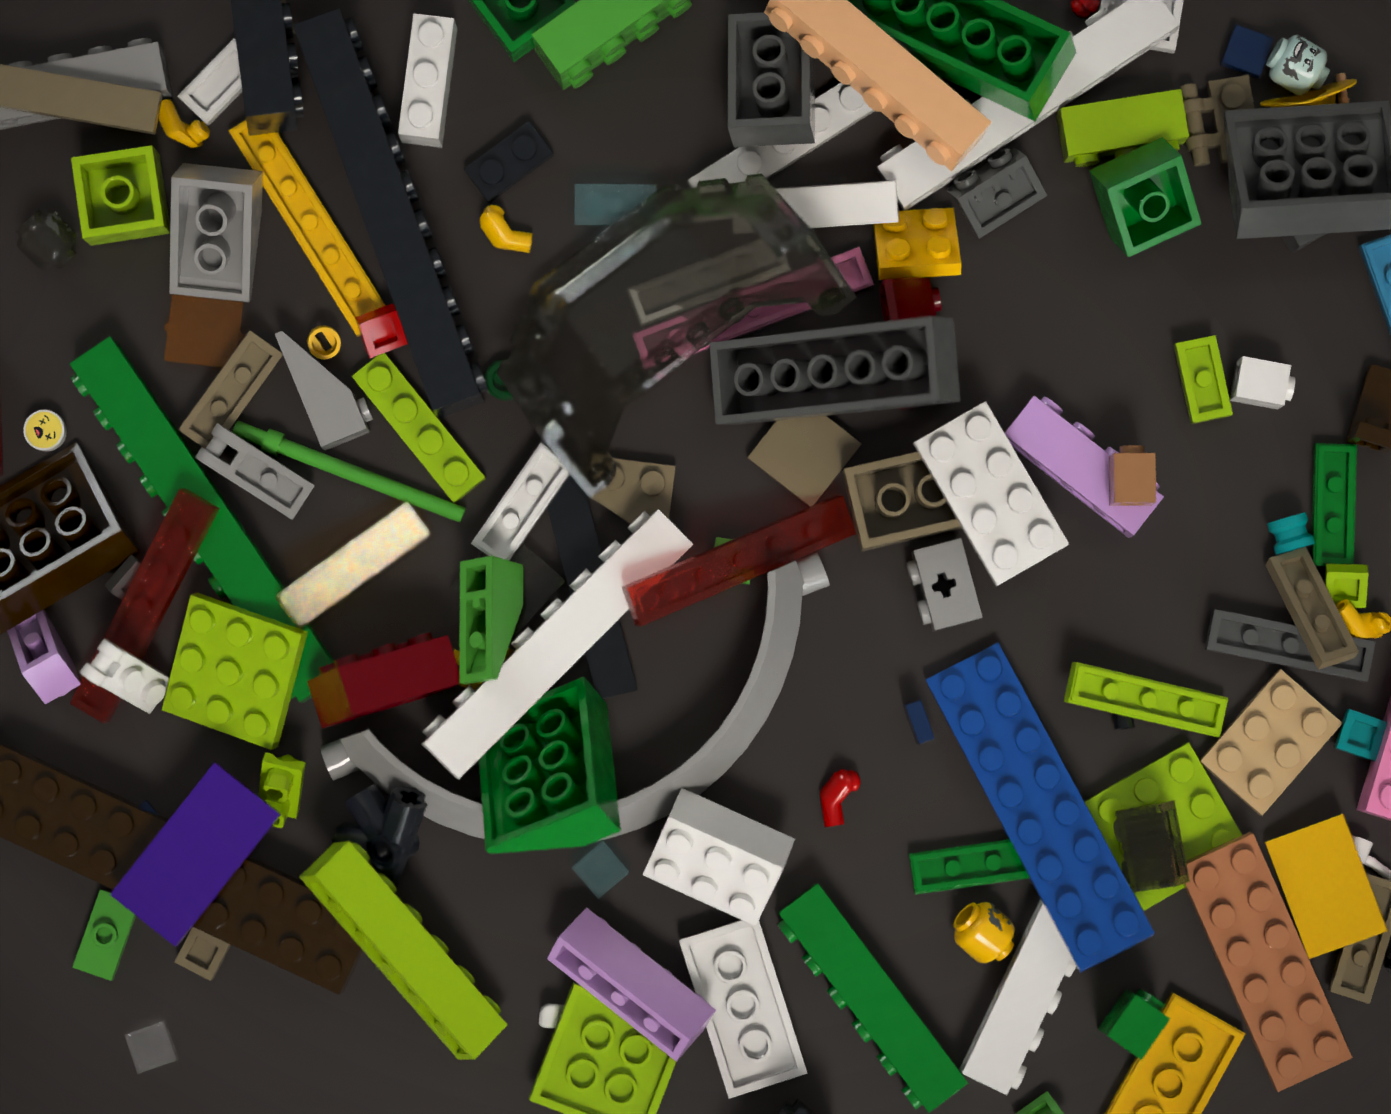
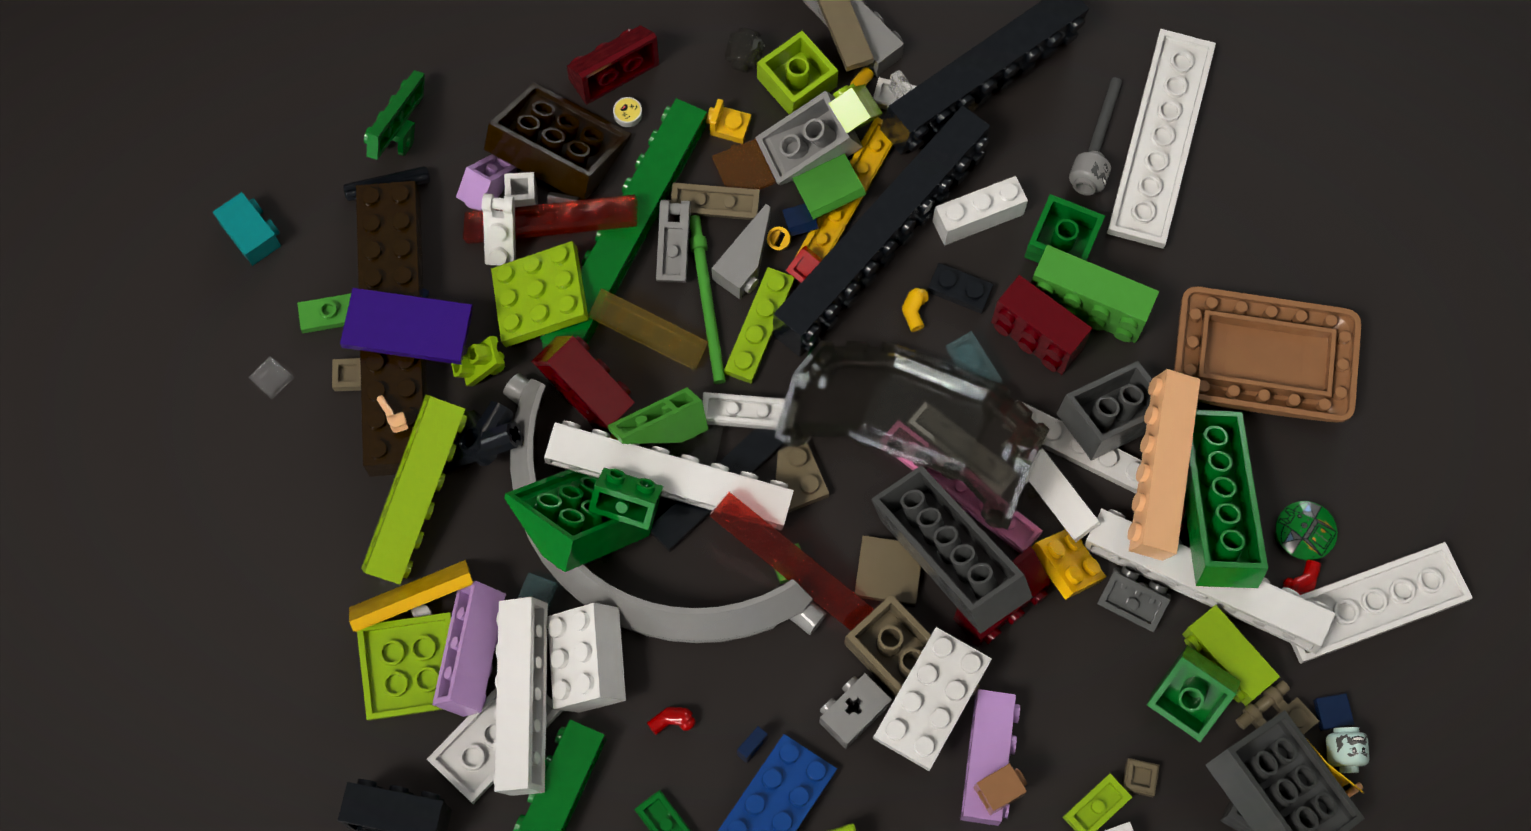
camera: 60 degrees right, 15 degrees down
(85, 621) = (522, 187): none -> white brick
(132, 315) = (728, 123): none -> yellow bracket
(213, 153) = (854, 107): none -> brick
(217, 80) = (899, 85): none -> clear tile
(293, 243) = (829, 186): none -> bright green tile
(311, 928) = (396, 421): none -> light nougat hand
(312, 301) = (799, 220): none -> dark blue tile
(530, 1019) = (409, 596): none -> yellow tile
(566, 711) = (625, 498): none -> green brick
(618, 100) = (1040, 325): none -> dark red brick
(723, 955) = (521, 697): none -> white brick
(1196, 311) = (1140, 777): none -> dark tan tile

